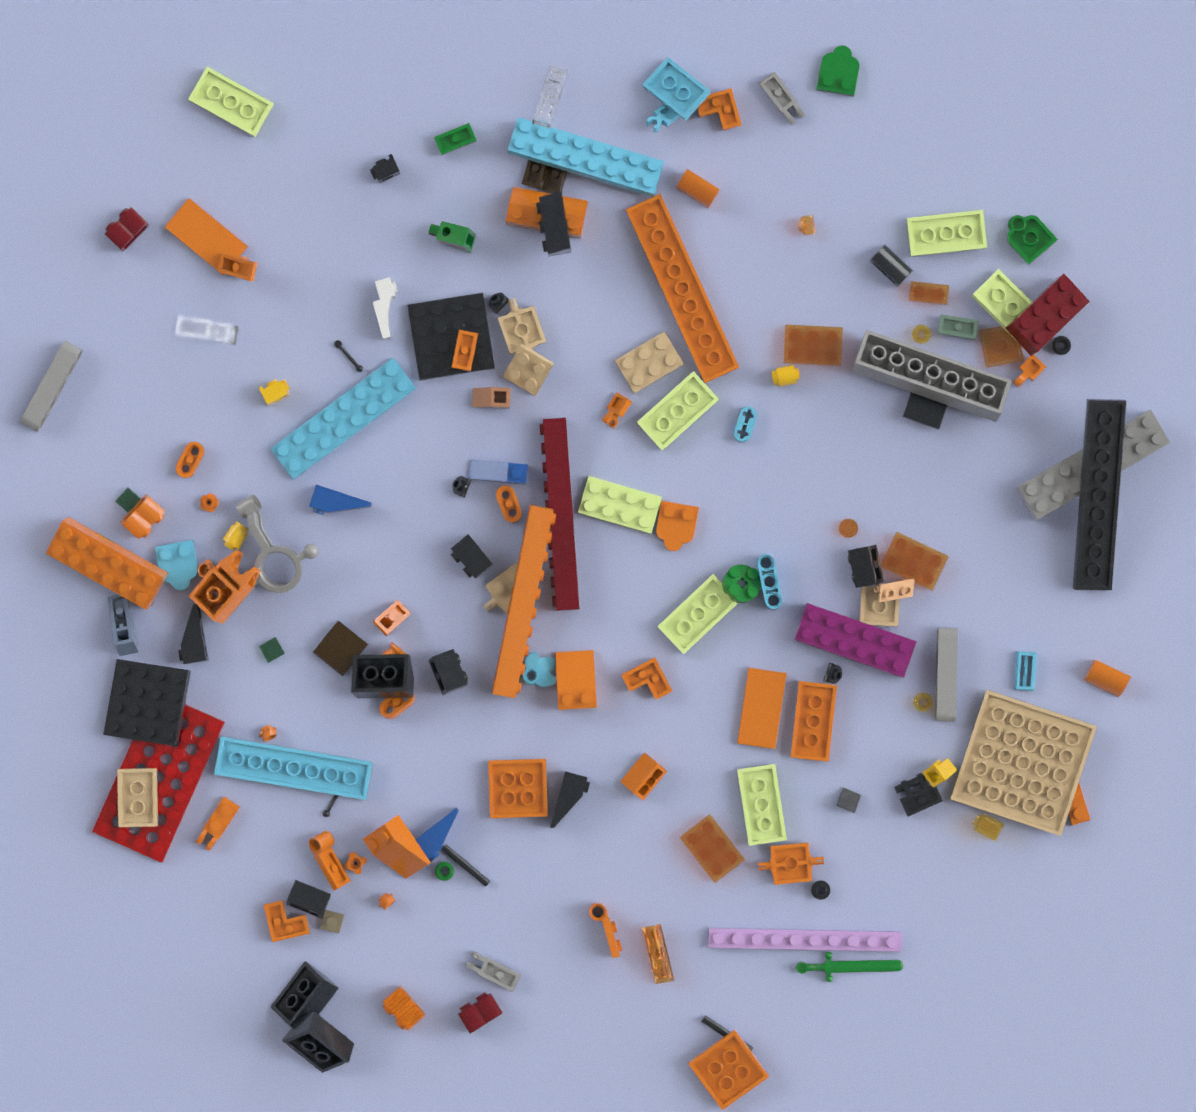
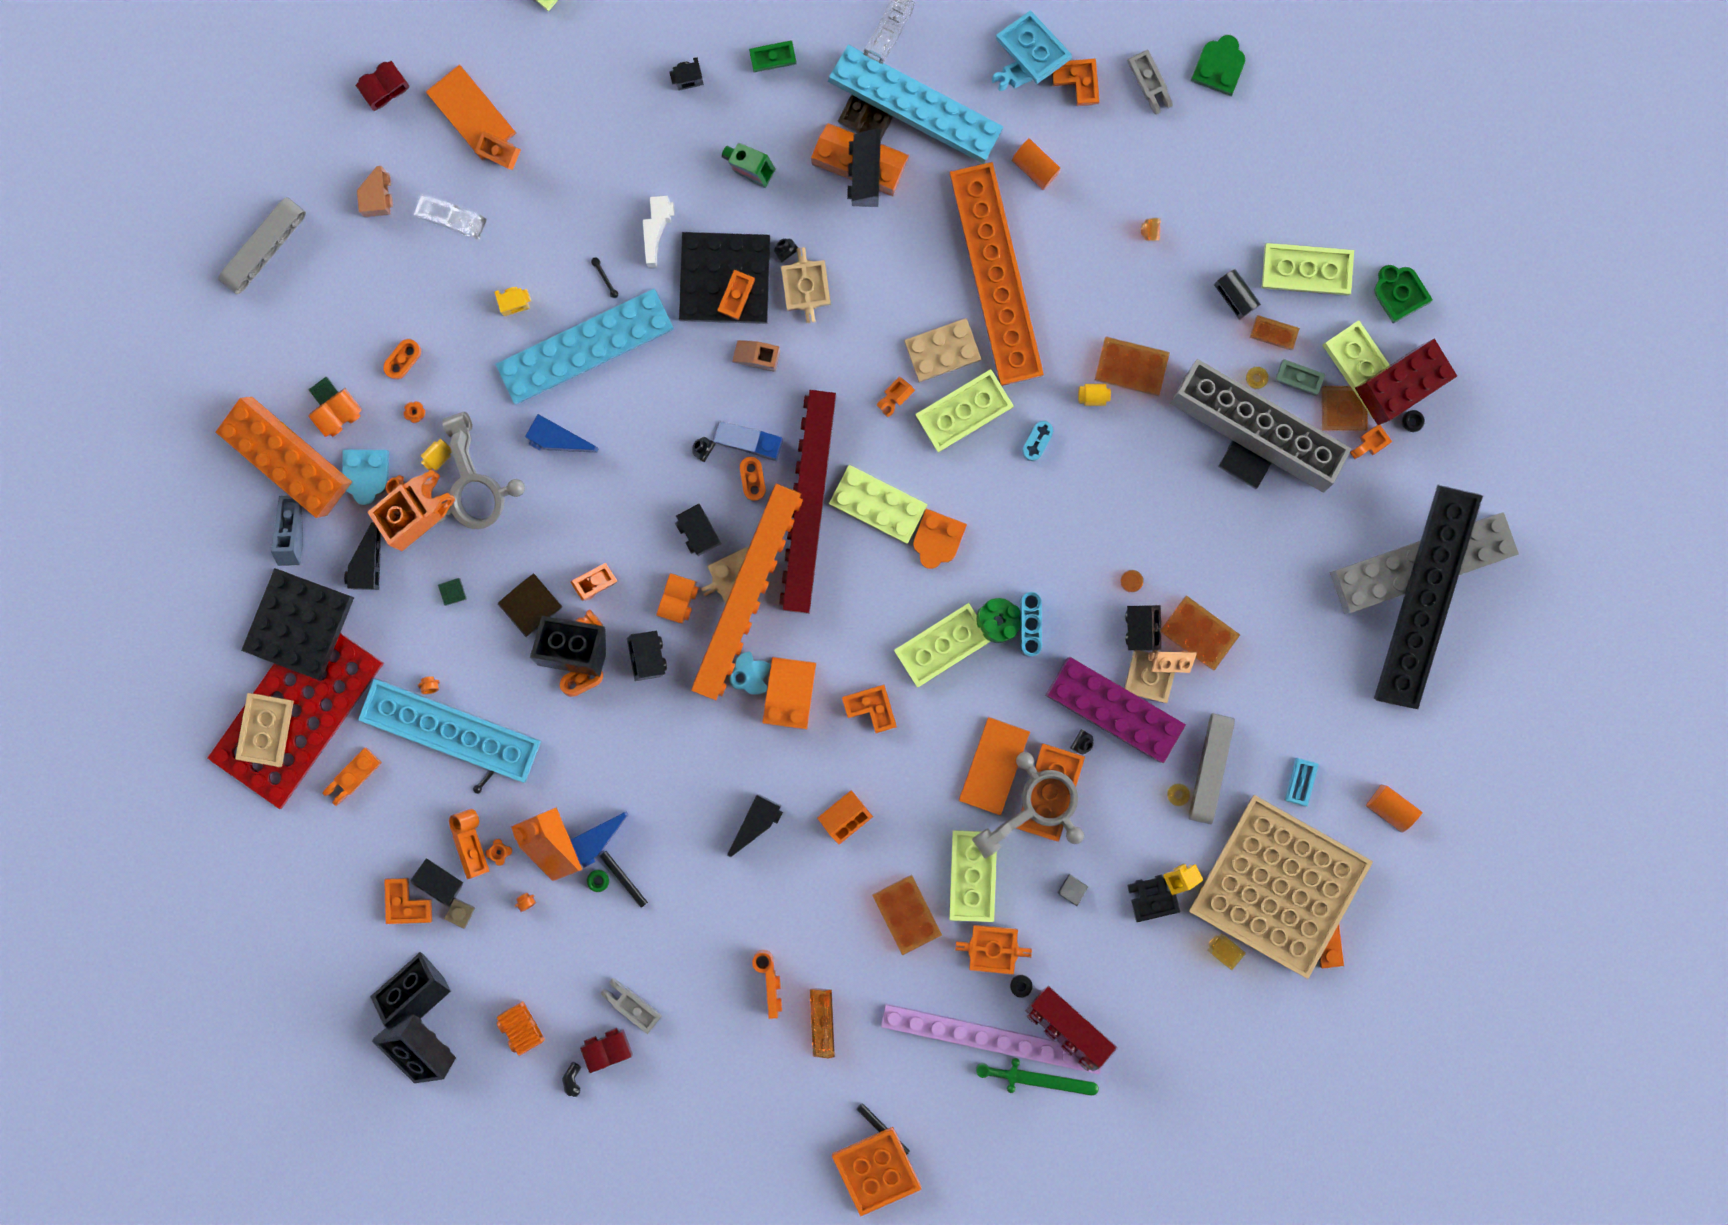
camera: 10 degrees right, 0 degrees up
(138, 324) = (374, 195): none -> nougat slope
(453, 1045) = (569, 1082): none -> black arm
(464, 618) = (677, 598): none -> orange brick
(518, 788) = (699, 803): orange plate -> none
(528, 369) = (804, 331): tan plate -> none
(768, 772) = (988, 842): none -> light grey piece
(868, 917) = (1070, 1029): none -> dark red brick

